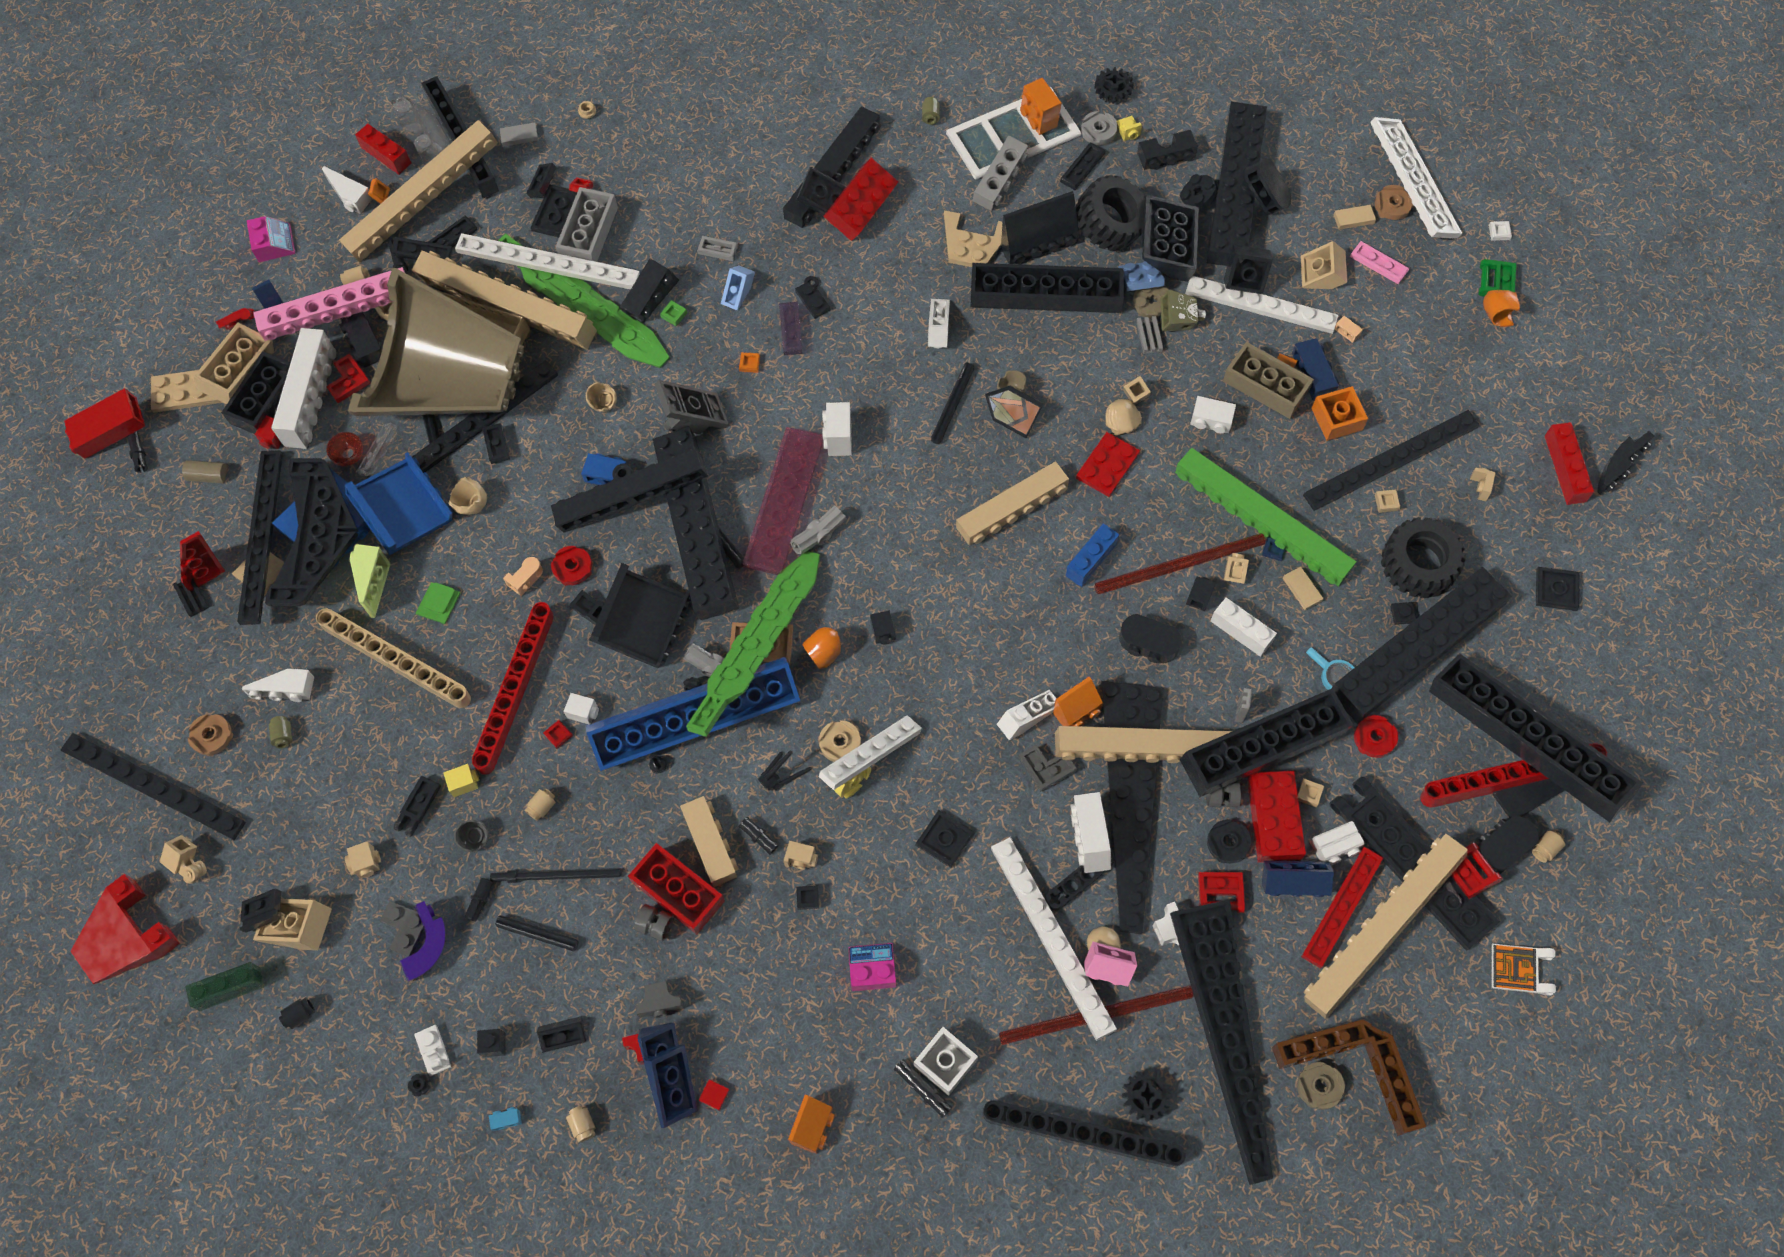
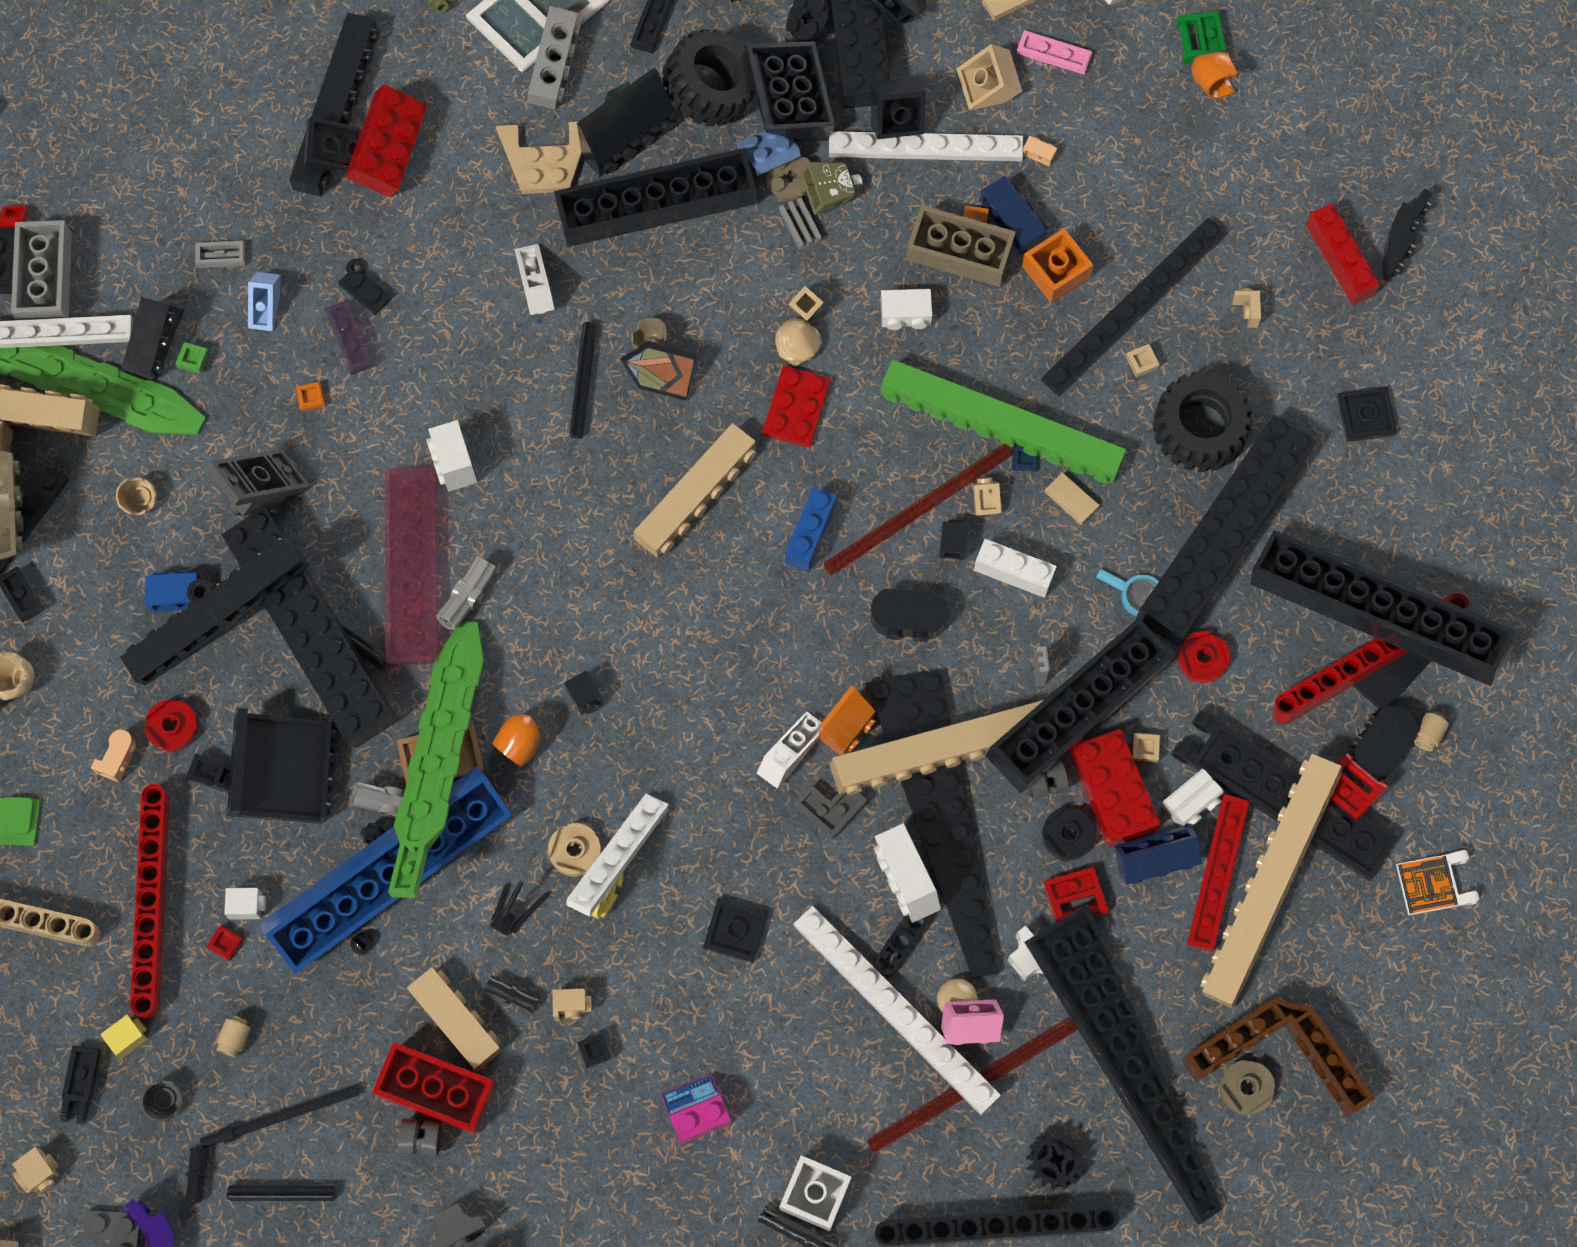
camera: 20 degrees left, 5 degrees up
(1403, 613) = (1196, 496): black plate -> none

